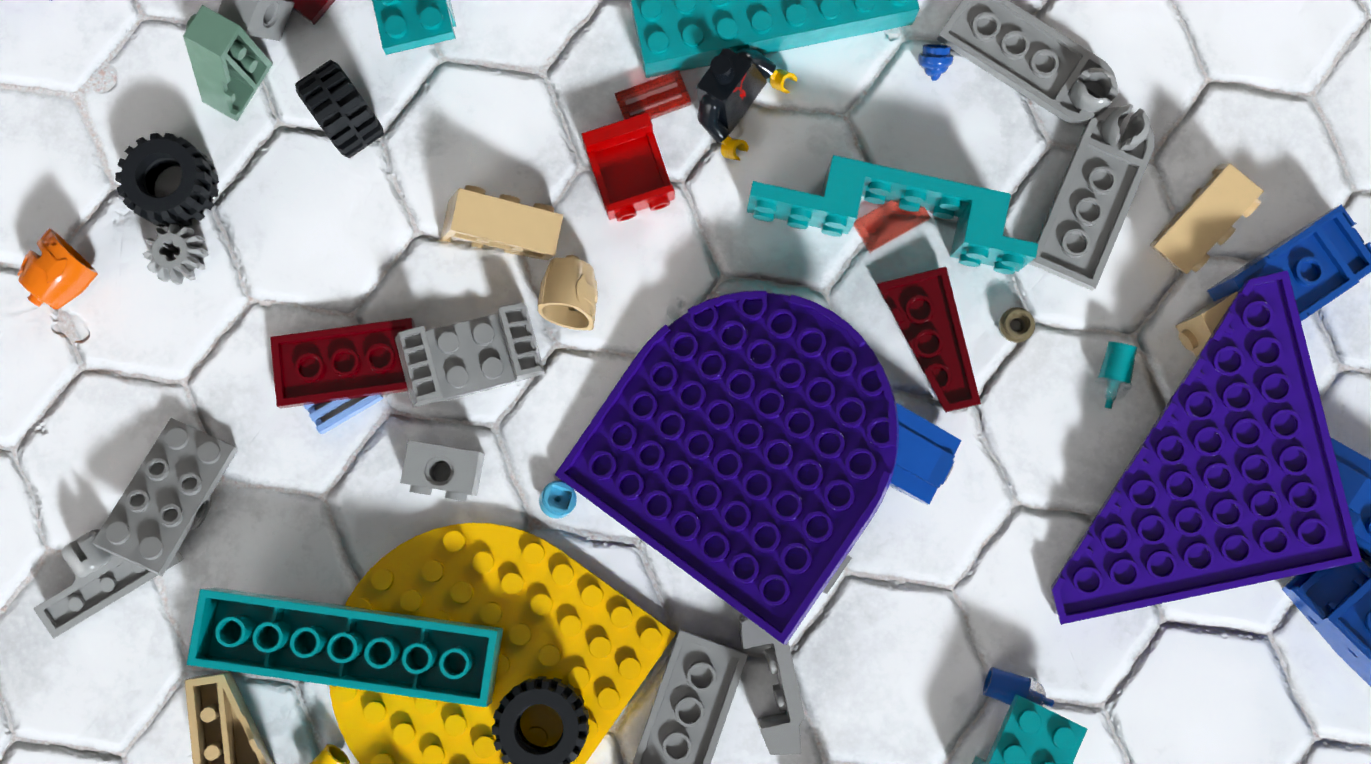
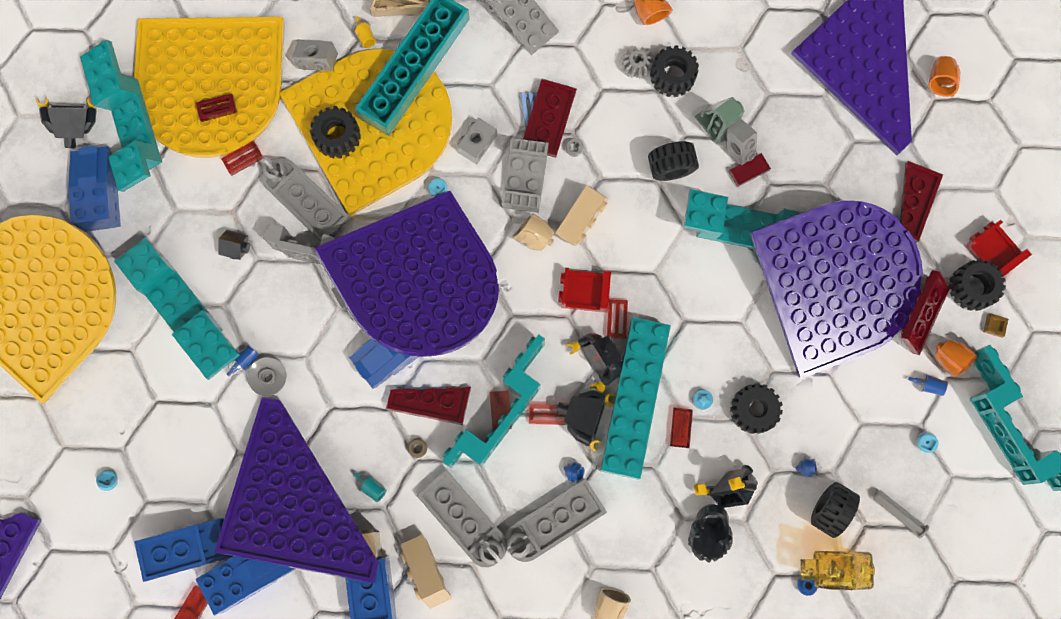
camera: 115 degrees right, 5 degrees down
(381, 286) = (580, 148): none -> light grey bush
(840, 75) = (584, 415): none -> black torso
(872, 129) = (544, 422): none -> clear red tile
(1040, 638) = (258, 372): none -> light grey dish

